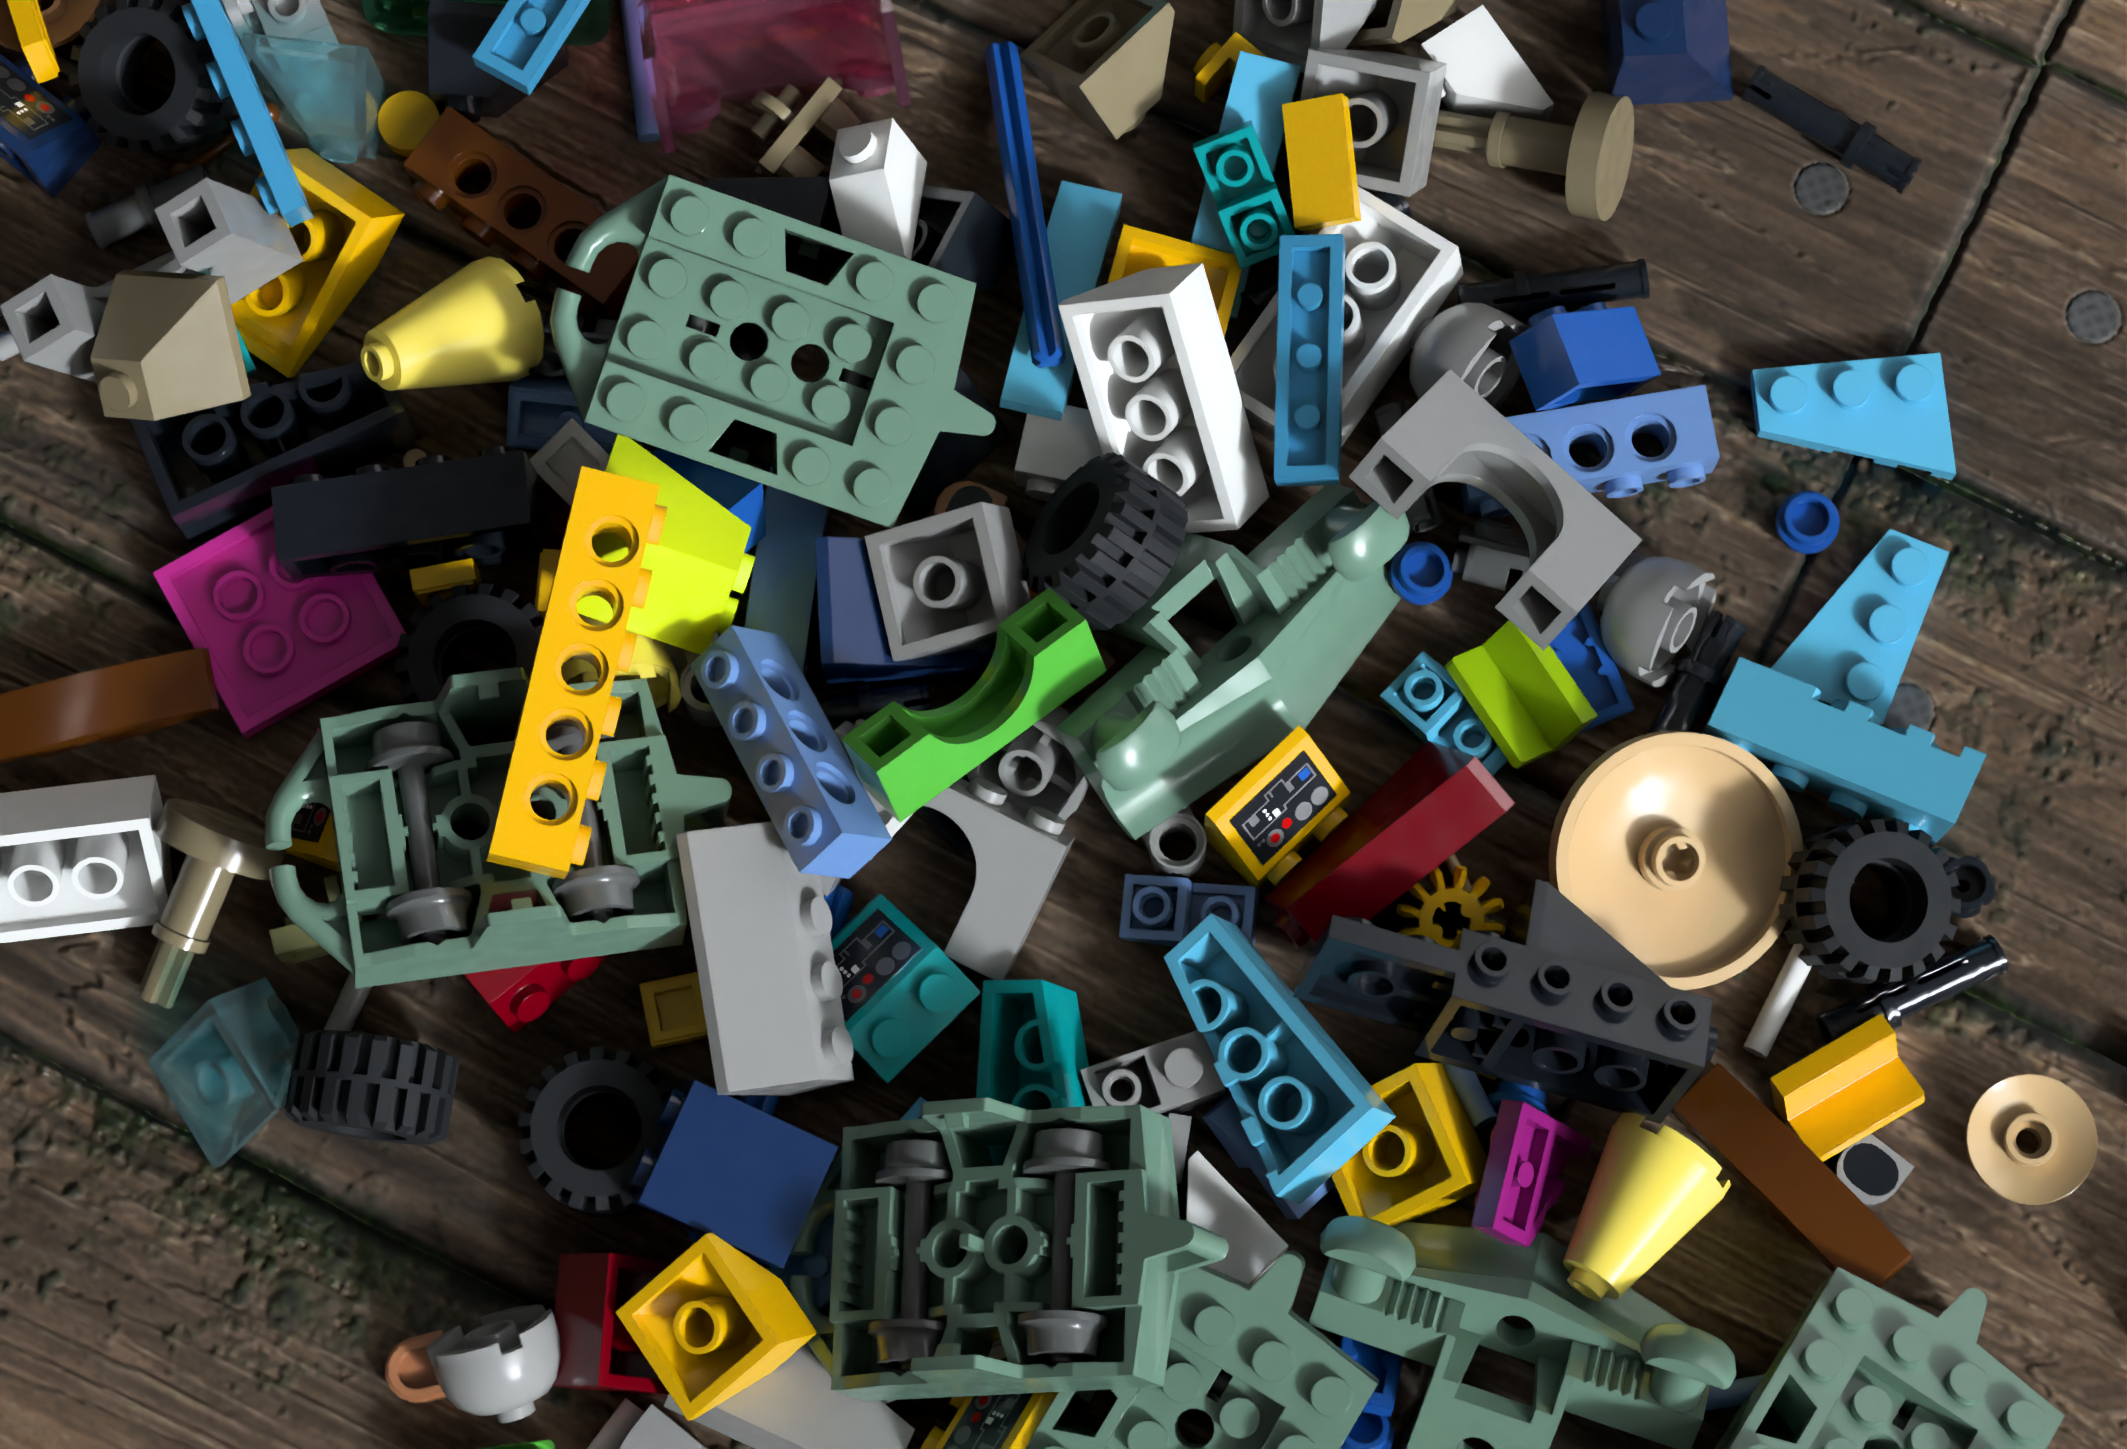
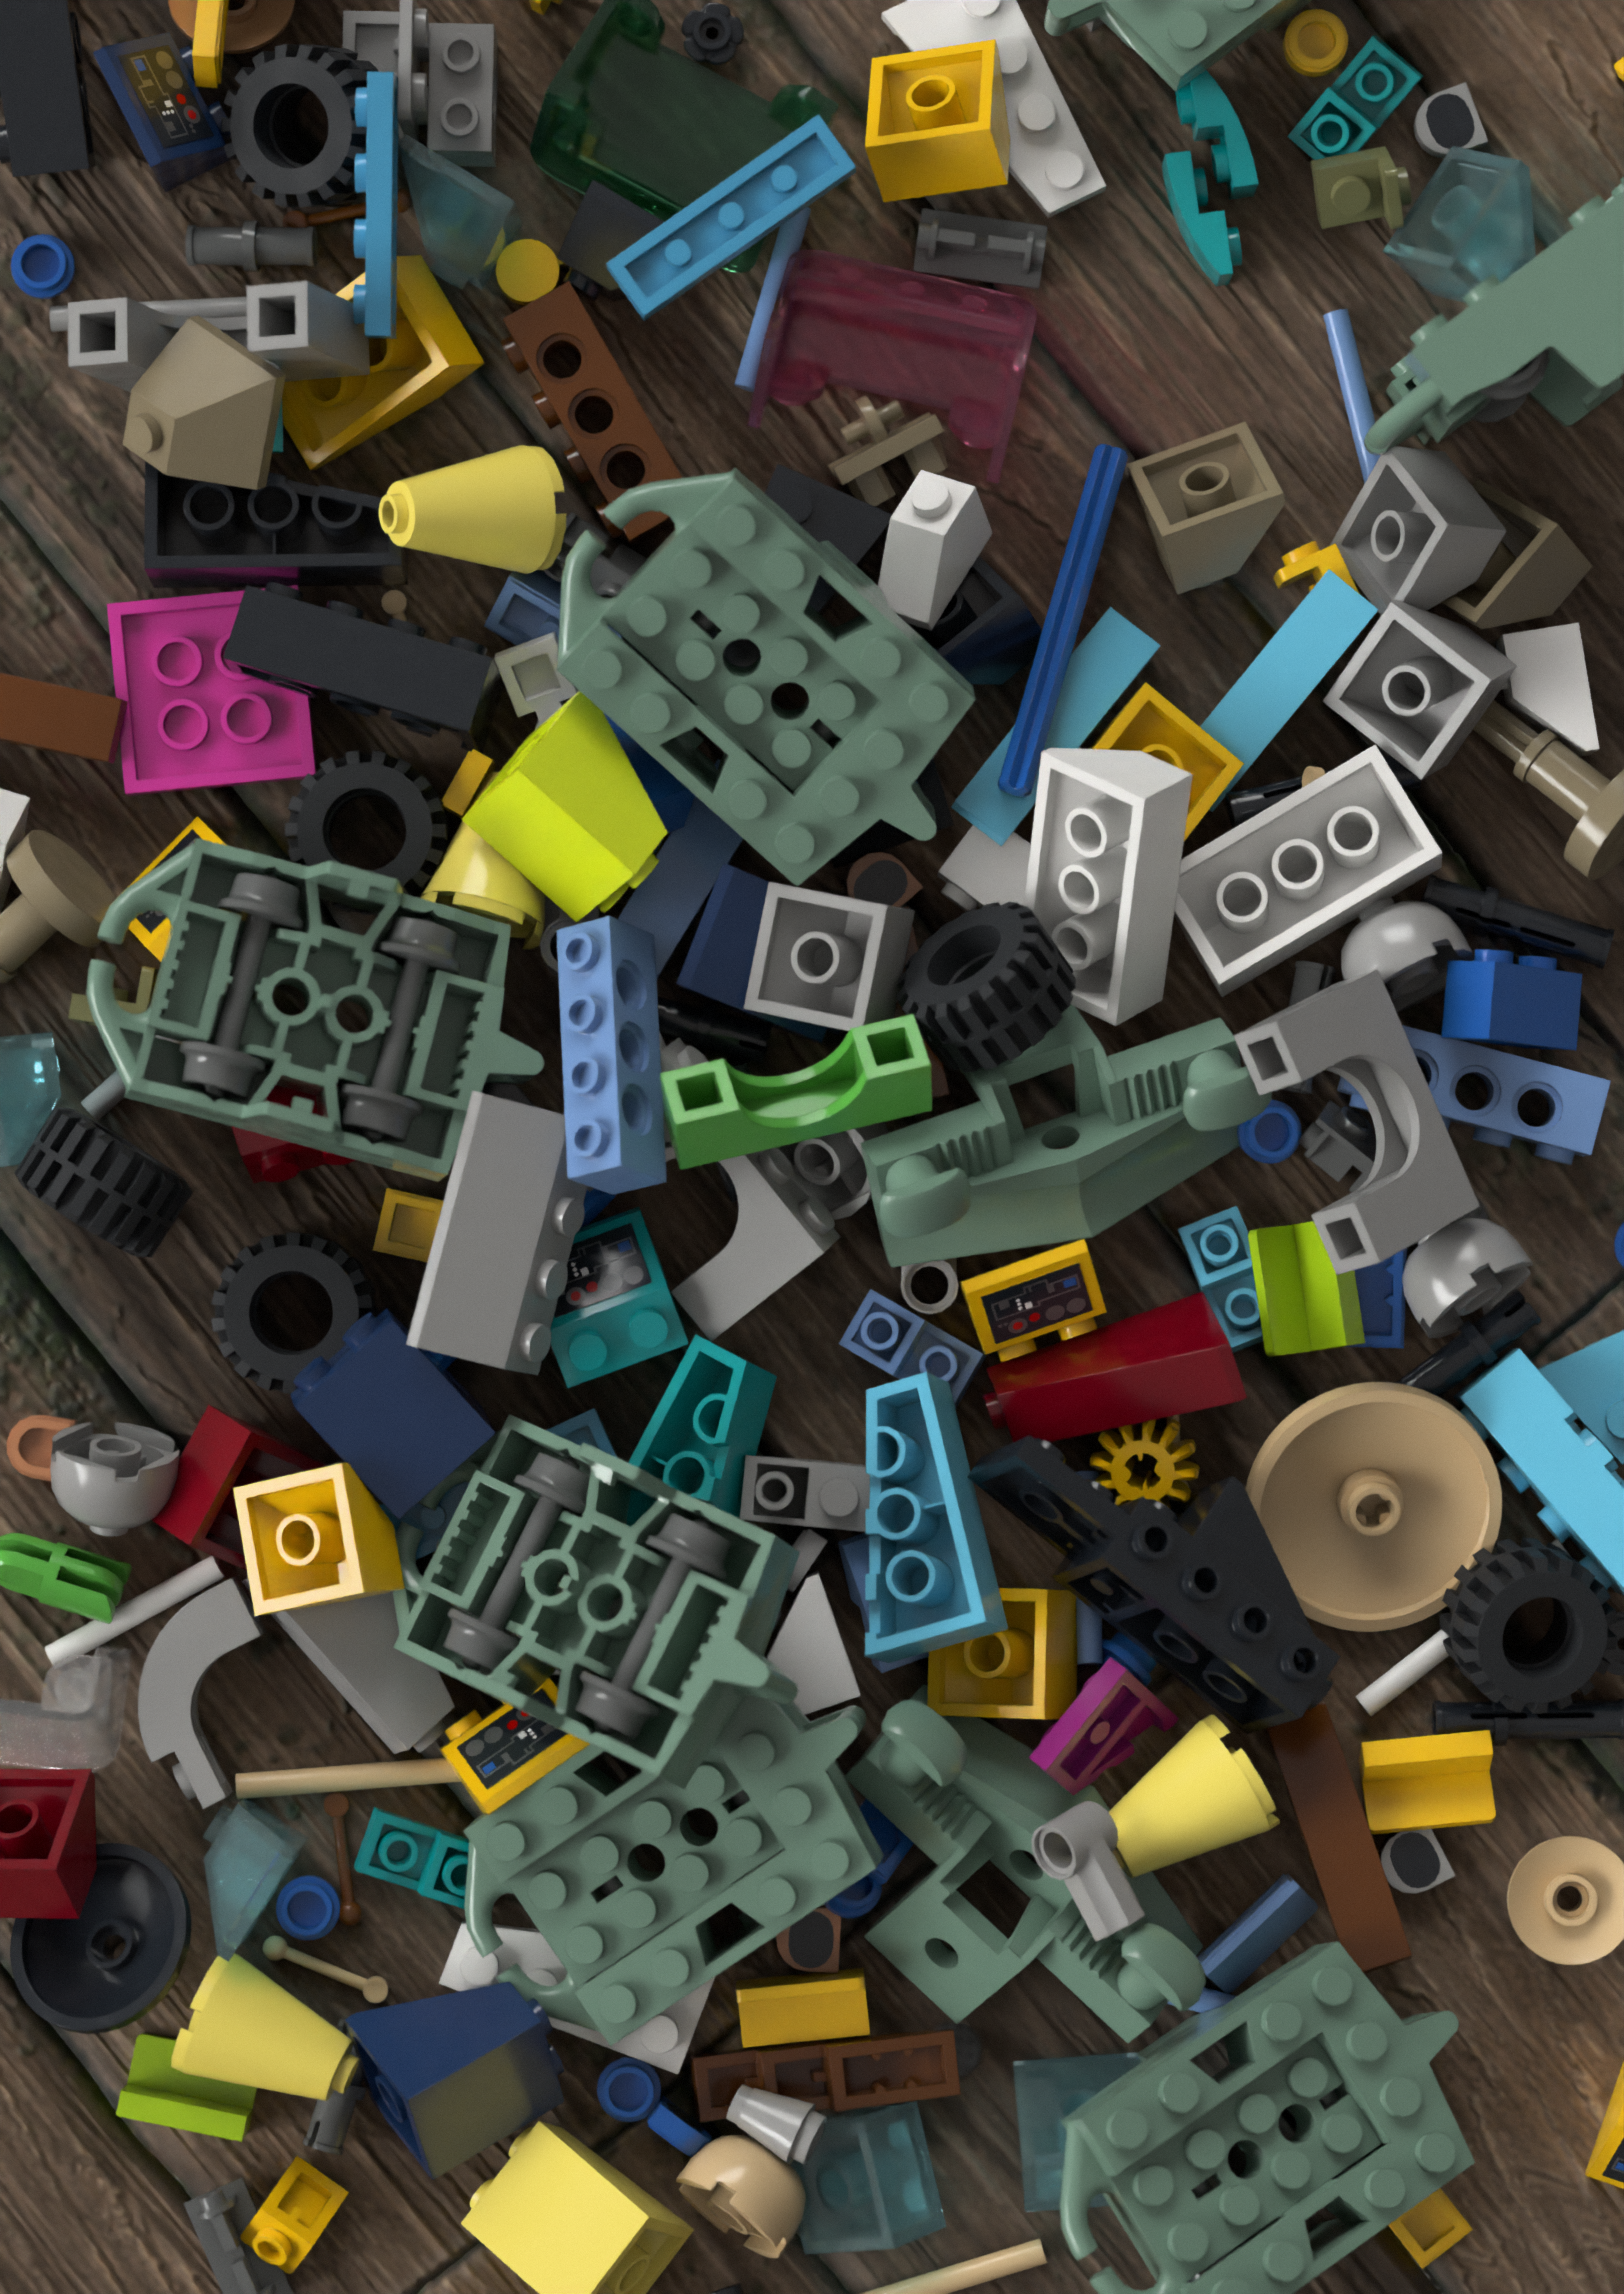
camera: 25 degrees right, 10 degrees up
(442, 577) = (372, 735): yellow tile -> none
(599, 505) = (326, 1035): yellow brick -> none
(1244, 192) = (1270, 708): teal slope -> none
(1309, 360) = (1253, 899): dark azure plate -> none
(1321, 162) = (1353, 713): yellow tile -> none
(1560, 1287) = (1080, 1852): none -> light grey piece
(1761, 1302) = (1257, 1933): none -> medium blue slope

